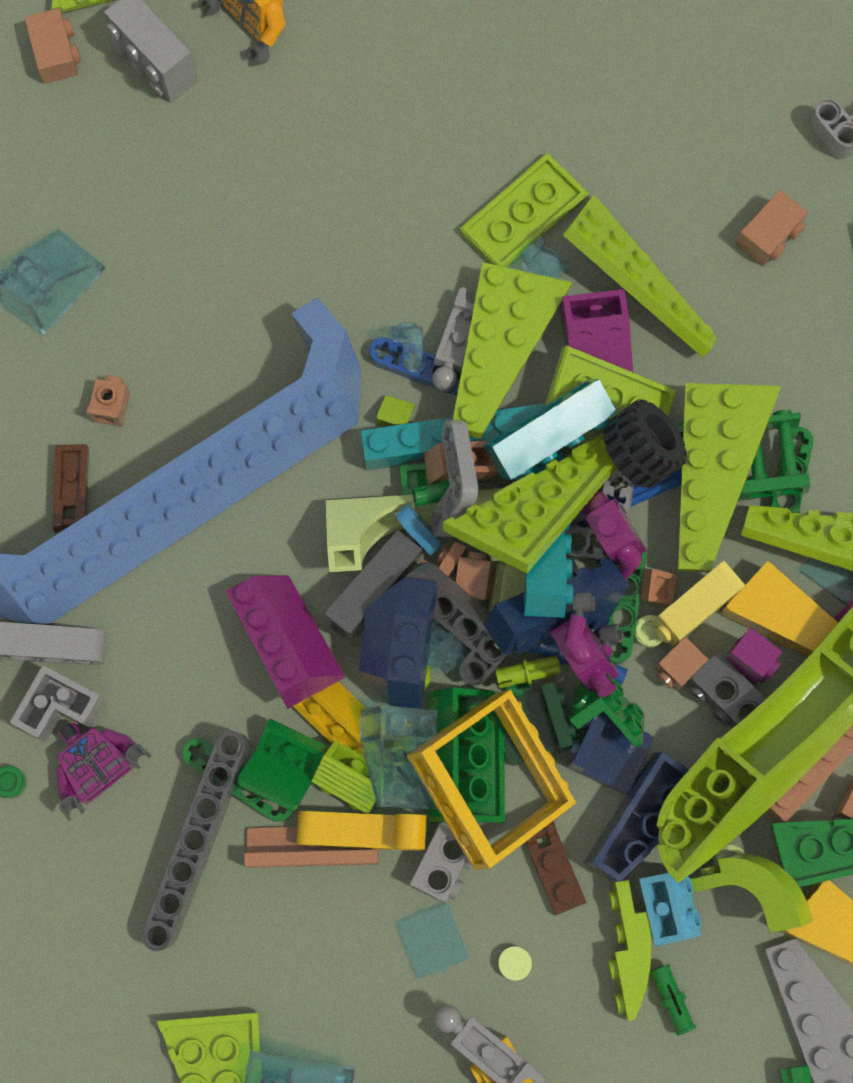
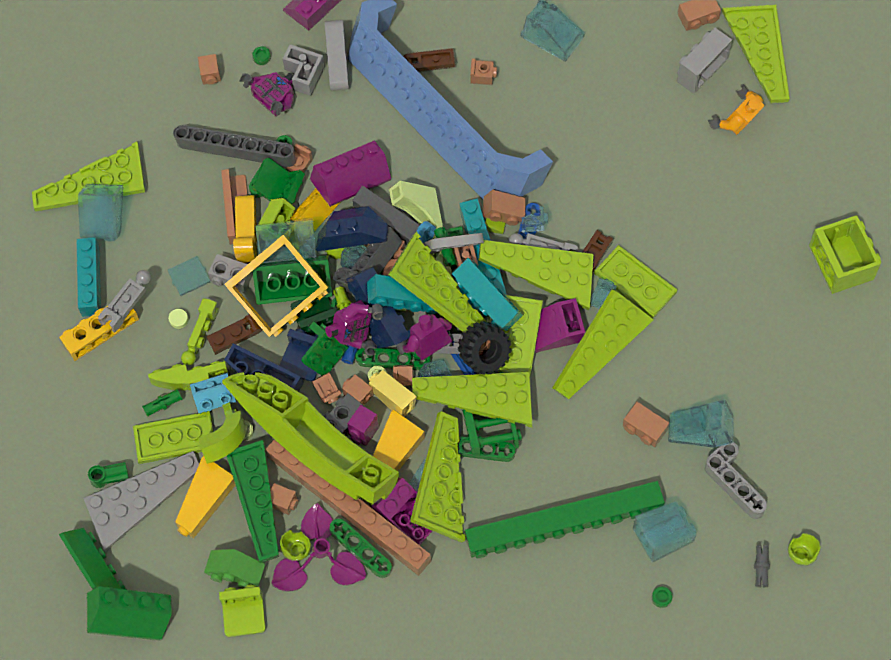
camera: 90 degrees right, 10 degrees down
(27, 878) = (209, 69): none -> nougat brick
(231, 719) = (303, 156): none -> nougat bracket
(379, 391) = (503, 207): none -> nougat brick
(465, 266) = (597, 249): none -> reddish brown plate
(510, 909) = (208, 312): none -> lime plate
(658, 538) = (434, 369): none -> clear light blue bracket
(673, 714) = (326, 388): none -> nougat bracket
(735, 983) = (171, 437): none -> lime tile
(784, 146) = (702, 425): none -> clear light blue slope

